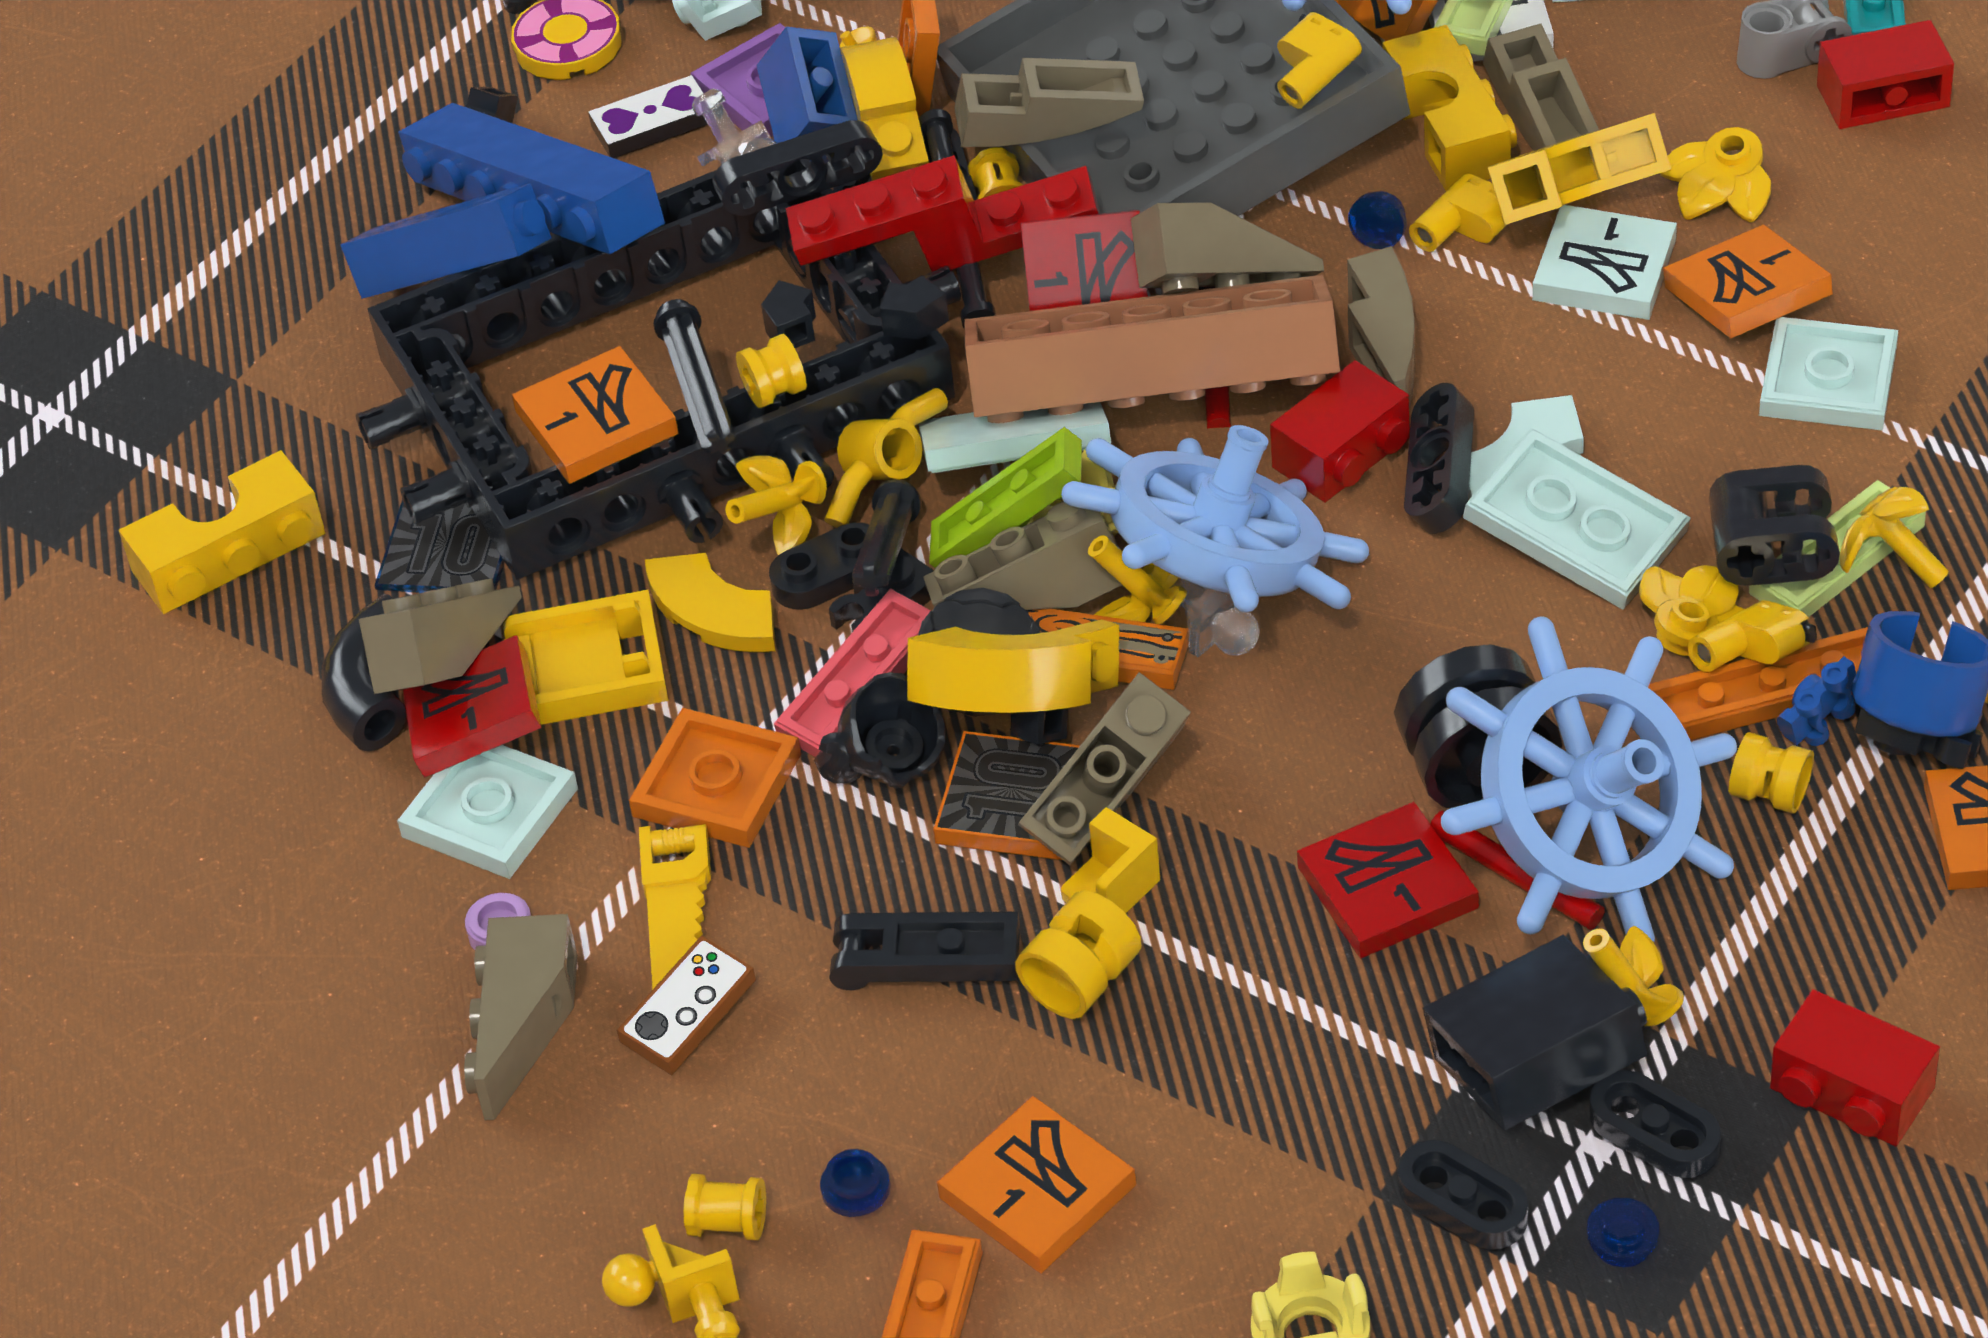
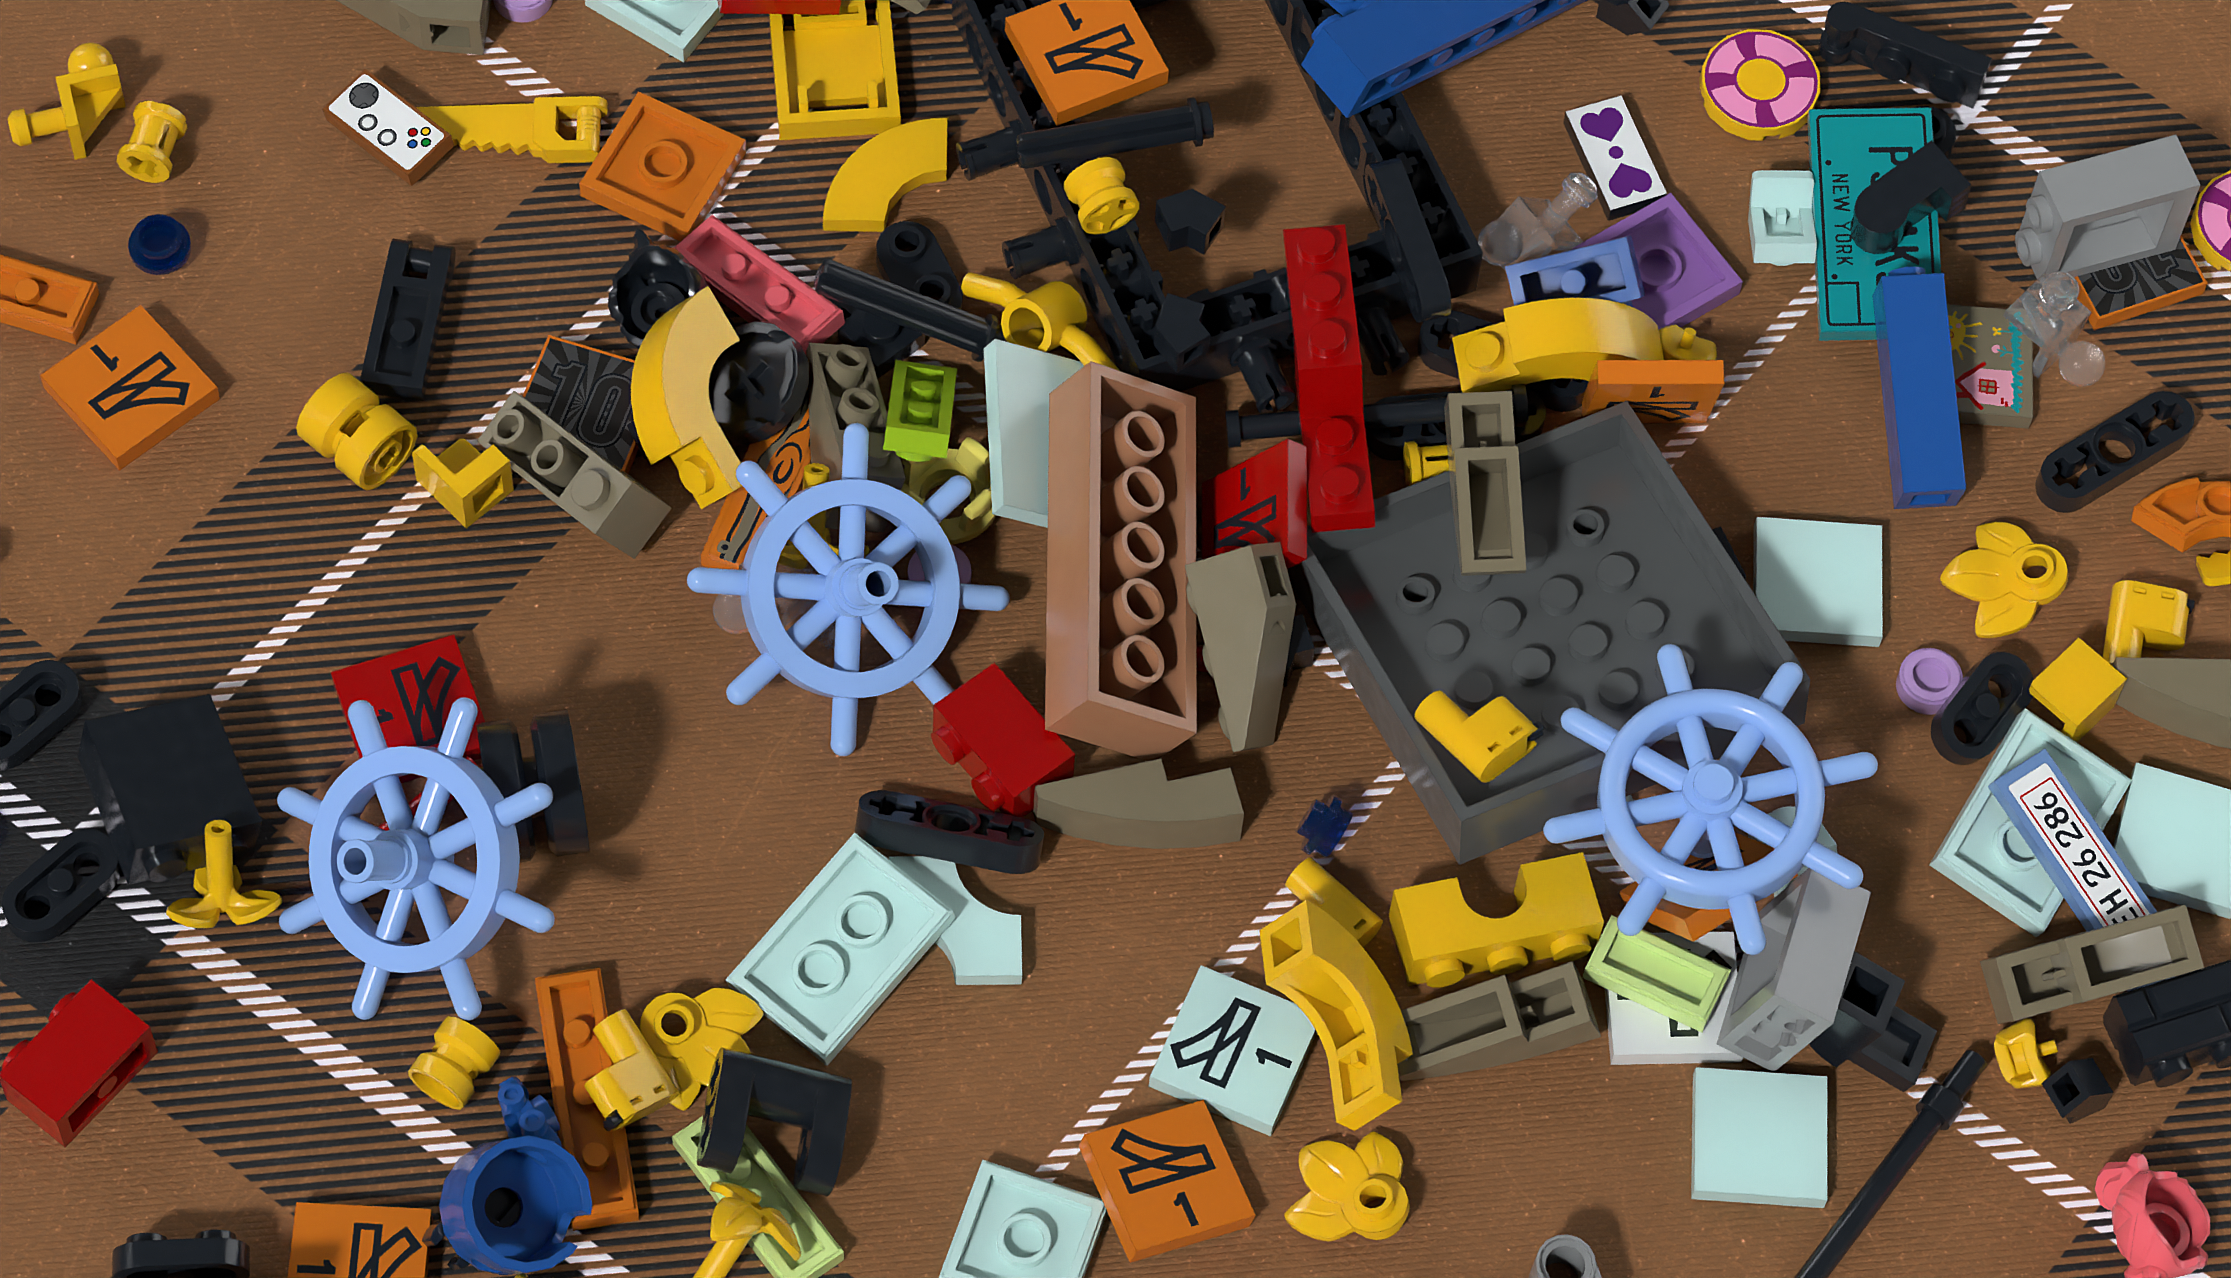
camera: 85 degrees right, 15 degrees up
(779, 494) = (988, 229): yellow plant -> none

